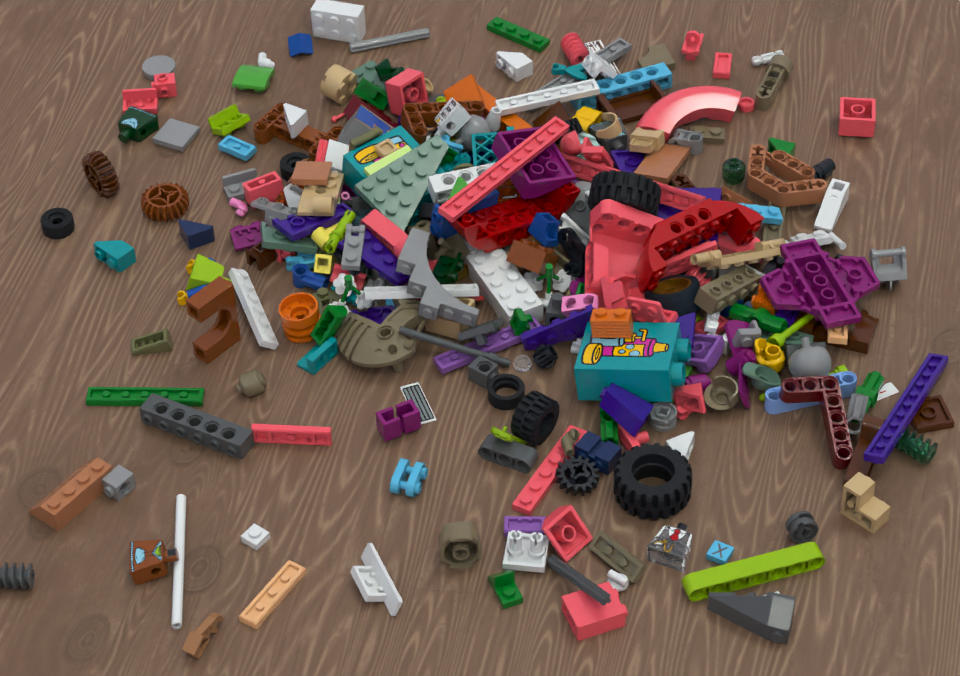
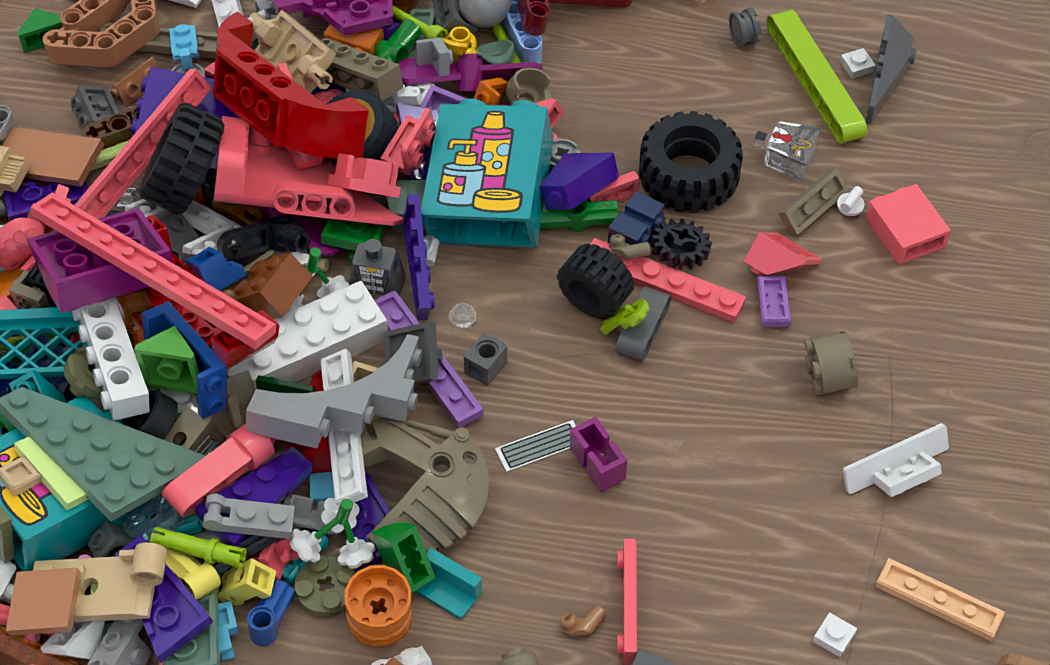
camera: 95 degrees left, 10 degrees up
(281, 415) = (583, 626): none -> medium nougat arm
(414, 483) = (703, 439): medium azure brick -> none
(454, 346) = (456, 353): dark grey bar -> none
(505, 381) = (523, 314): black tyre -> none
(505, 588) = (878, 320): green slope -> none
(519, 321) = (397, 308): green tile -> none
(526, 552) = (819, 295): white plate -> none
(545, 356) = (456, 284): black gear -> none
(578, 303) = (391, 220): bright pink leg -> none
(578, 579) = (874, 230): dark grey axle -> none
(611, 323) = (450, 170): orange brick -> none
(683, 443) = (622, 138): white slope -> none
(710, 179) = (92, 104): none -> dark grey bracket
(719, 552) = (785, 108): medium azure tile -> none
(720, 369) = (491, 91): none -> orange bracket
(733, 171) = (75, 74): clear green head -> none

